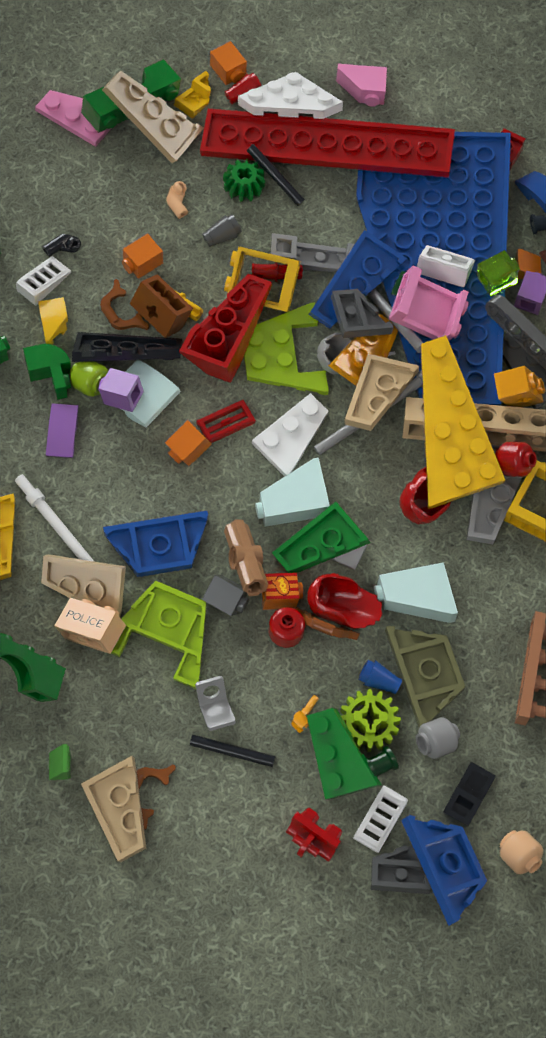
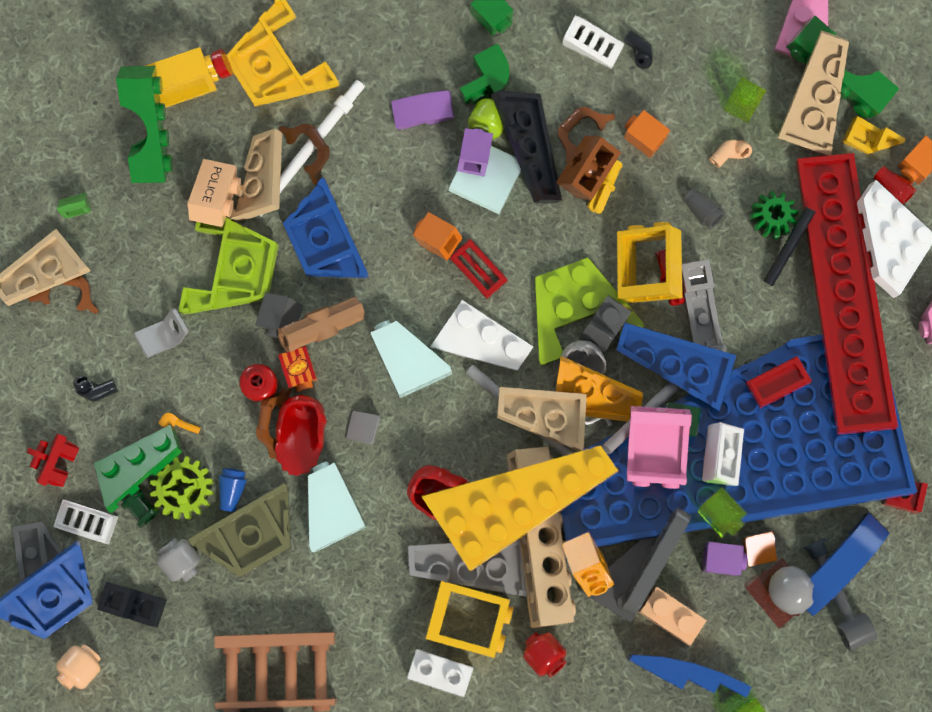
camera: 80 degrees right, 15 degrees up
(53, 318) = (548, 65): yellow slope -> none
(64, 524) = (322, 148): none -> reddish brown helmet
(136, 174) = (744, 99): none -> clear neon green brick
(224, 335) = (572, 241): red wedge -> none
(232, 750) = (125, 363): black bar -> none
(254, 784) = (93, 391): none -> black arm
(306, 329) = (606, 323): none -> dark grey slope
(321, 540) = (361, 395): green wing -> none
(357, 315) = (628, 372): dark grey wing -> none
(392, 211) = (778, 382): none -> red tile
(516, 459) = (500, 577): red head -> none

